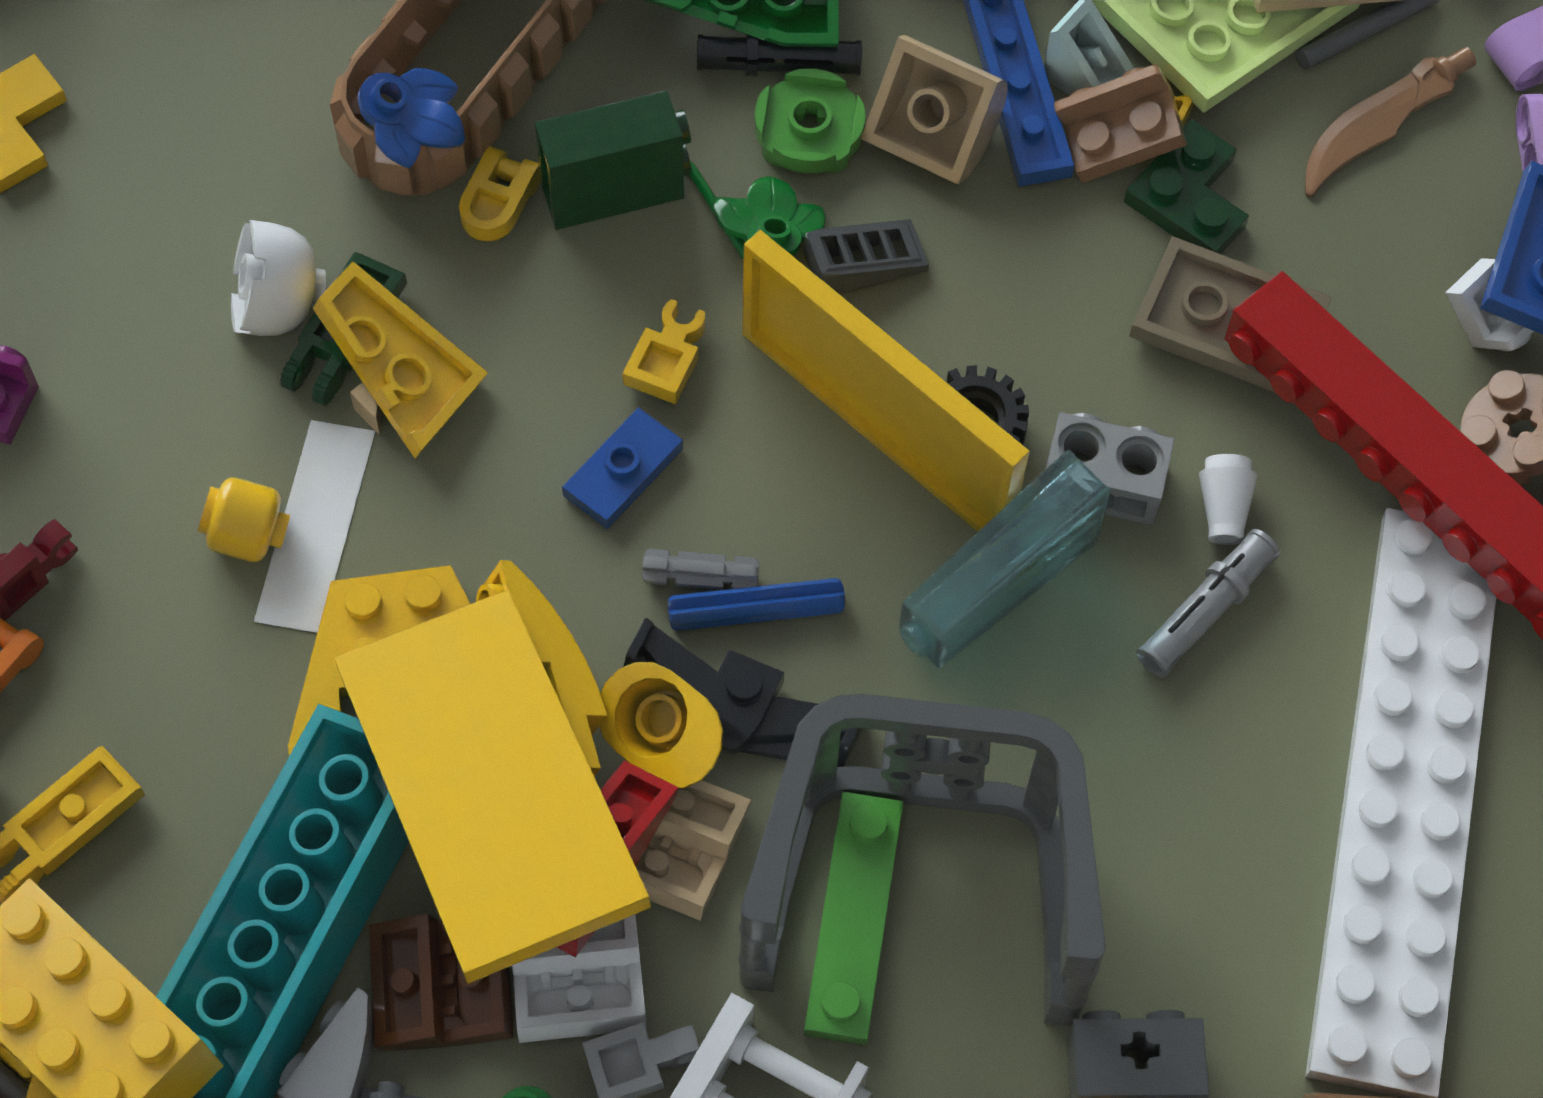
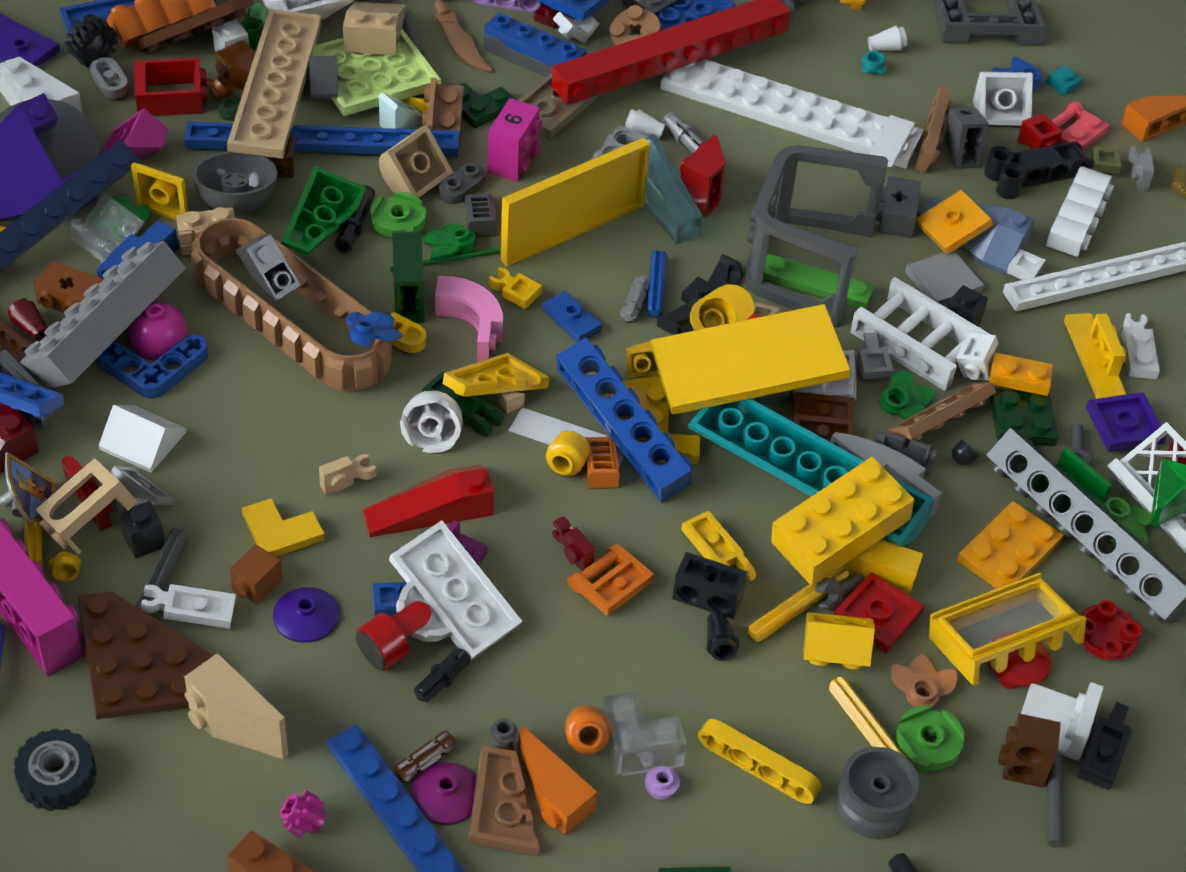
camera: 80 degrees left, 15 degrees down
(114, 341) = (449, 496): none -> red wedge
(126, 173) = (341, 473): none -> tan plate
(236, 607) = (609, 475): none -> orange slope
(291, 598) = (661, 479): none -> blue brick
(580, 308) = (475, 304): none -> bright pink arch
(940, 209) = (463, 181): none -> dark grey plate
(1059, 256) = (514, 140): none -> dark pink brick
(1068, 629) = (704, 175): none -> red slope
(1352, 1018) = (892, 138): none -> white sticker
(1383, 237) = (527, 45): none -> blue piece

